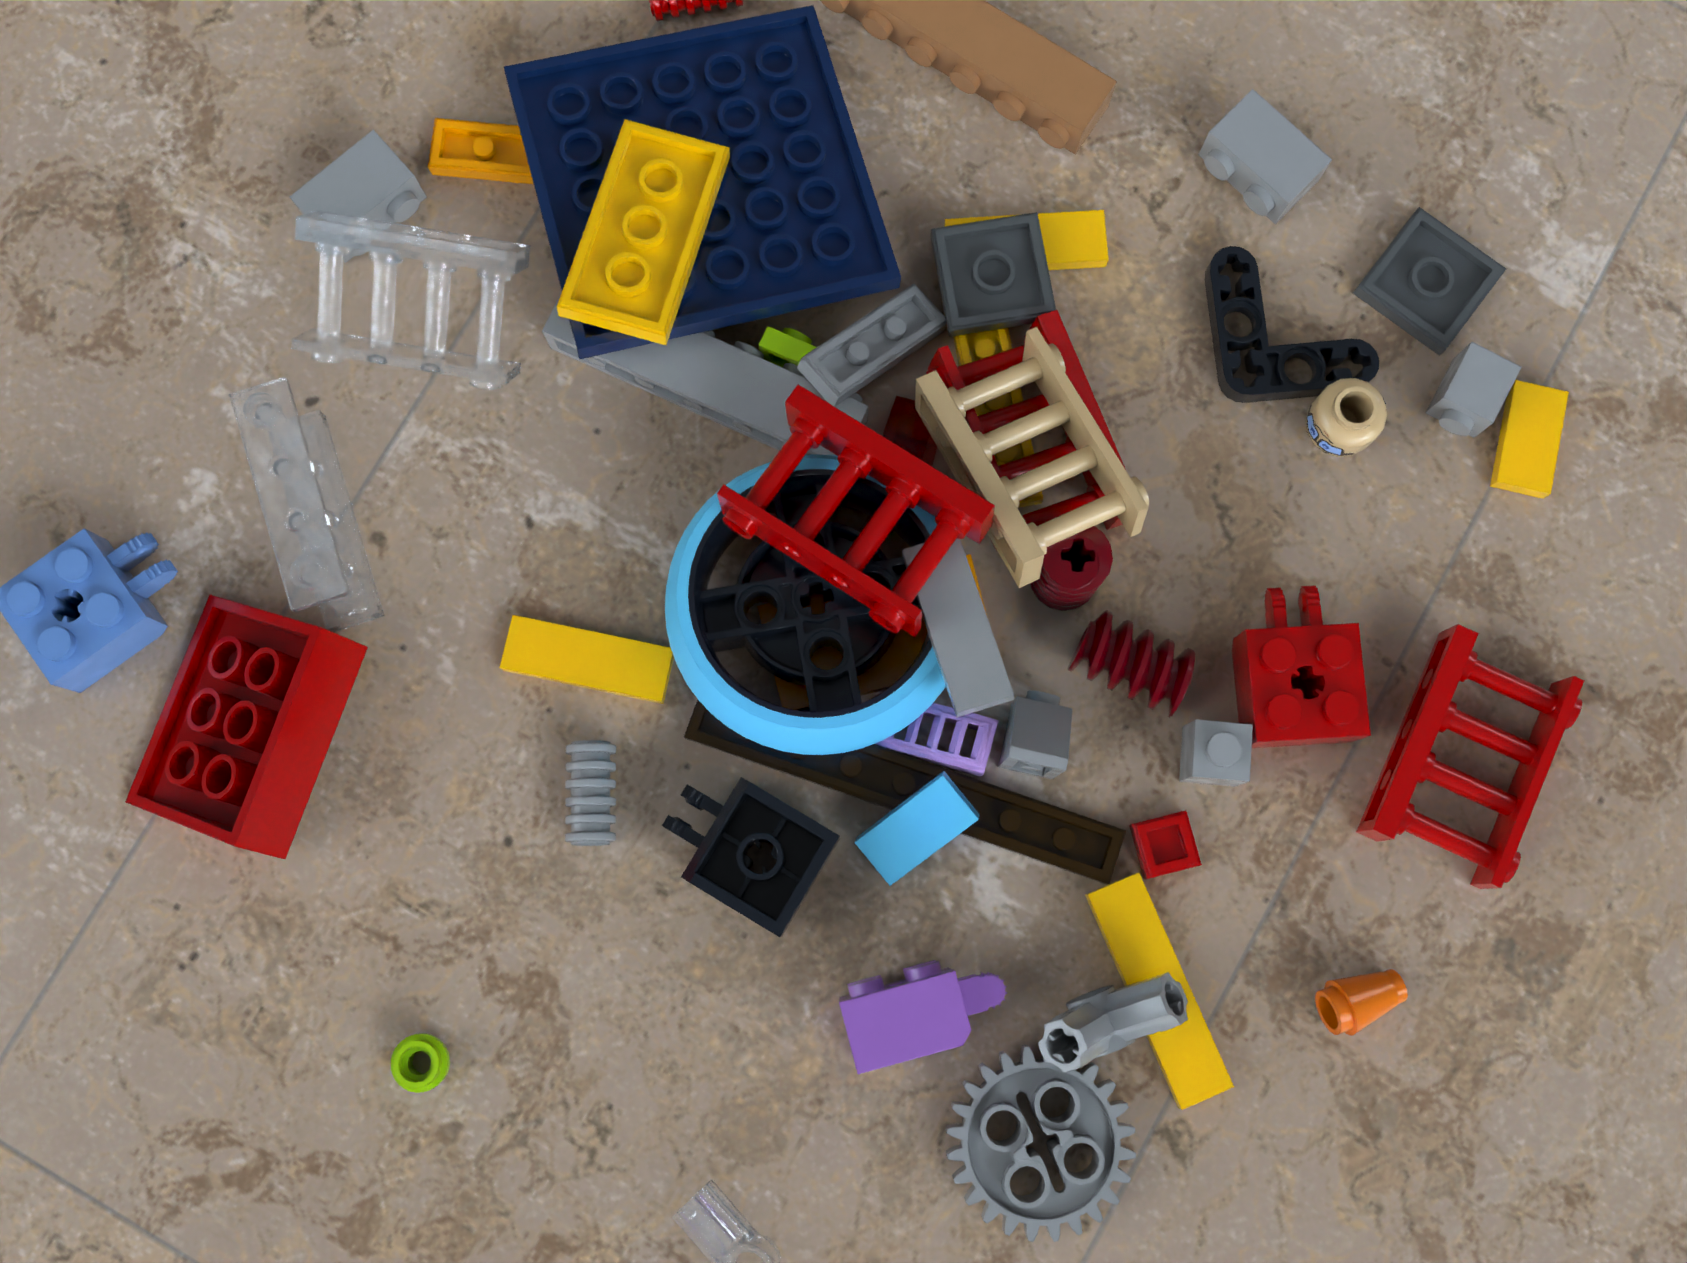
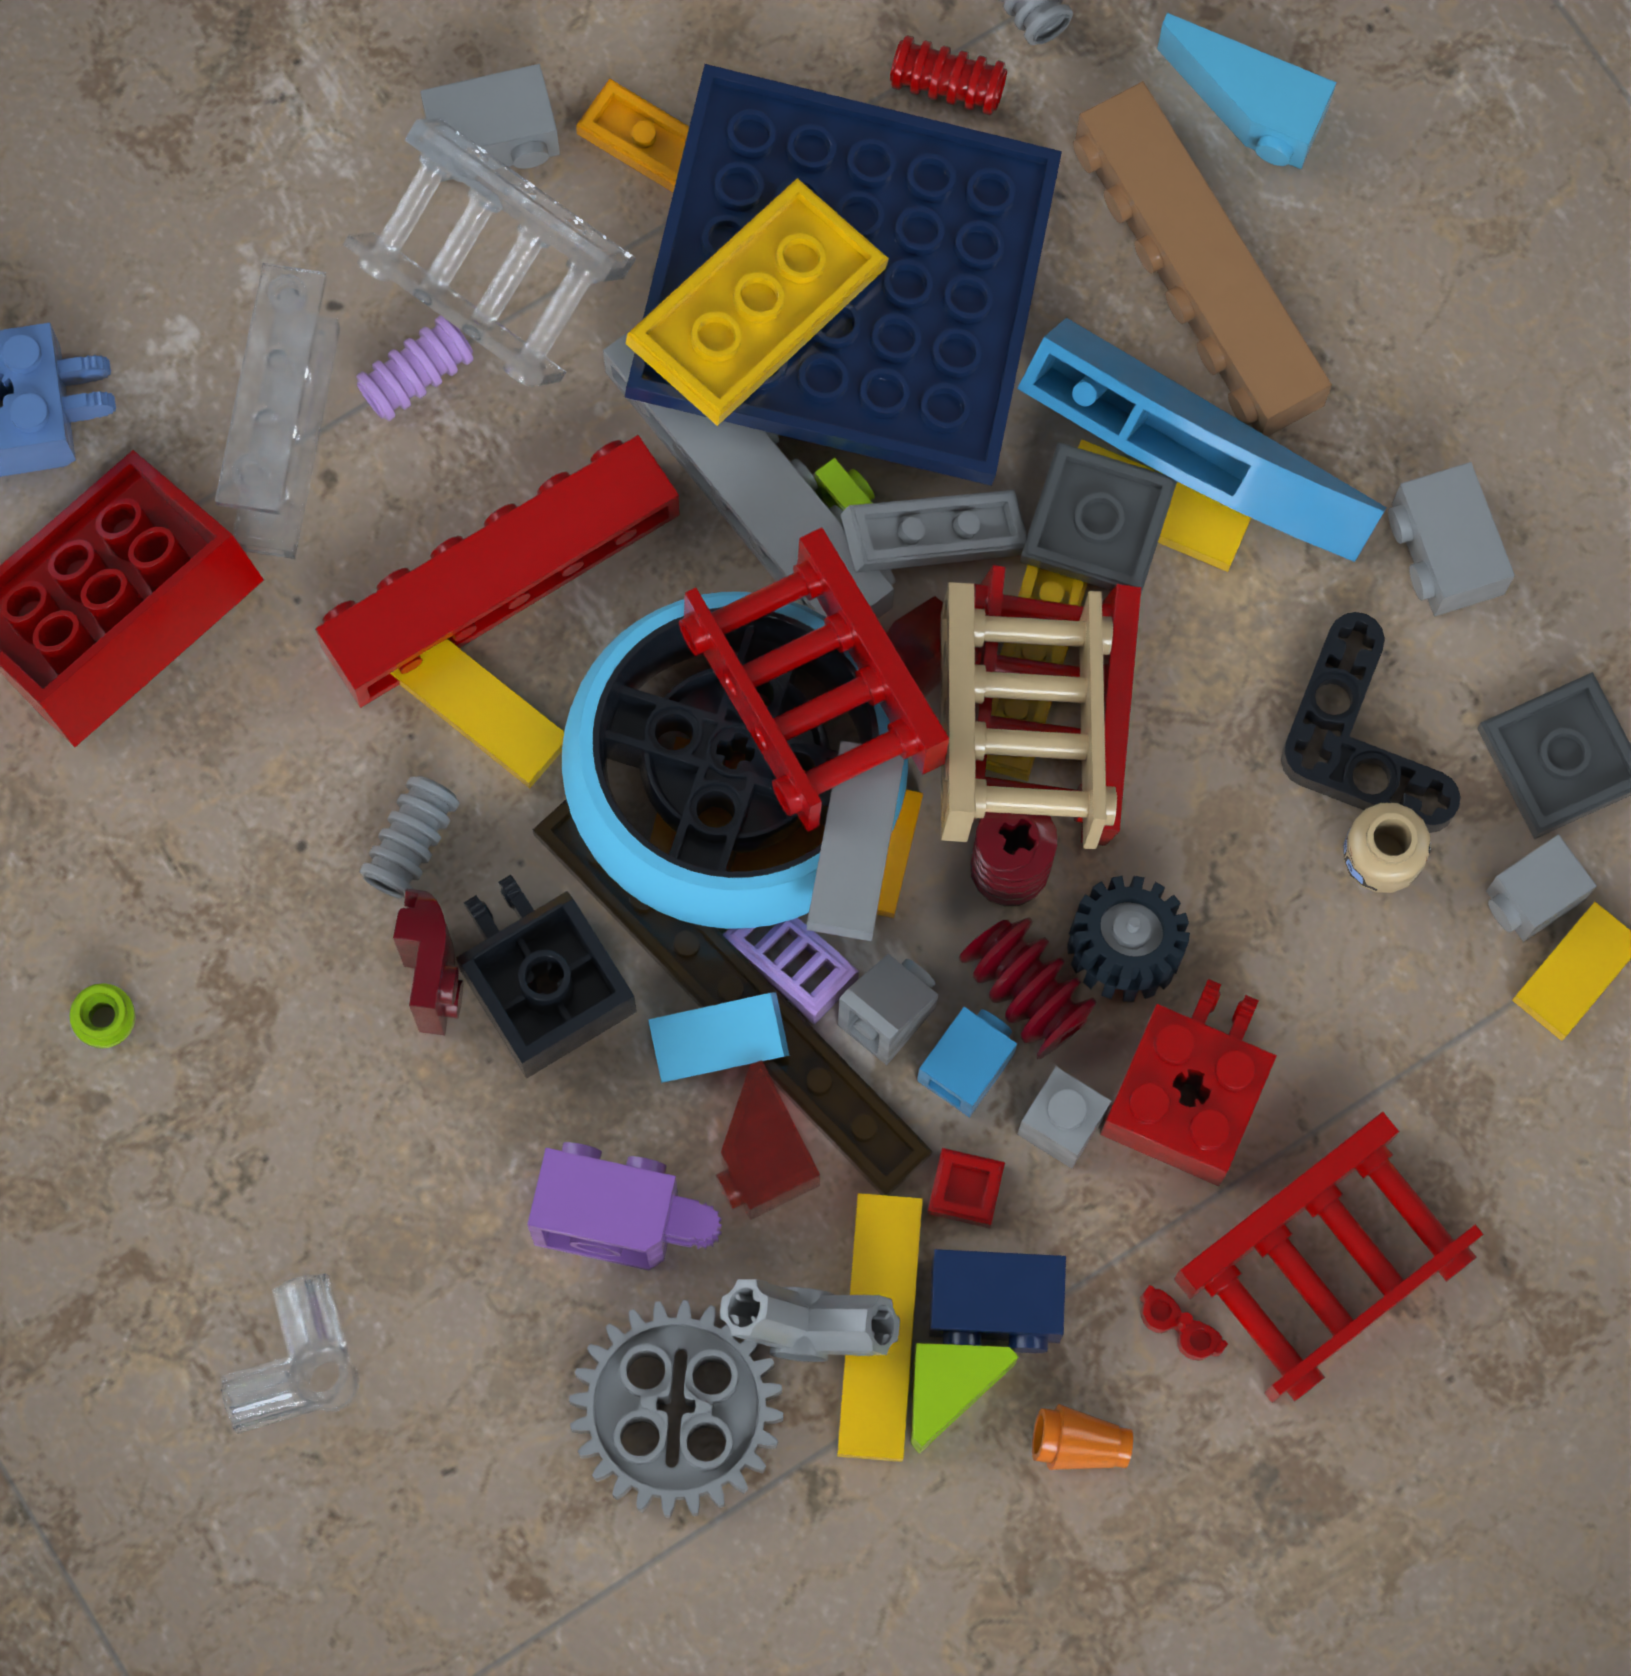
camera: 25 degrees right, 5 degrees down
(400, 418) = (414, 368): none -> lavender piece
(549, 545) = (499, 568): none -> red brick
(654, 873) = (428, 947): none -> dark red slope
(998, 899) = (763, 1150): none -> clear red slope
(1035, 177) = (1195, 441): none -> dark azure slope
(1117, 745) = (968, 1059): none -> dark azure brick
(1188, 587) = (1128, 938): none -> black wheel
(1239, 922) = (997, 1298): none -> dark blue brick
(1240, 1011) = (950, 1382): none -> lime slope
(1397, 871) = (1194, 1339): none -> red piece

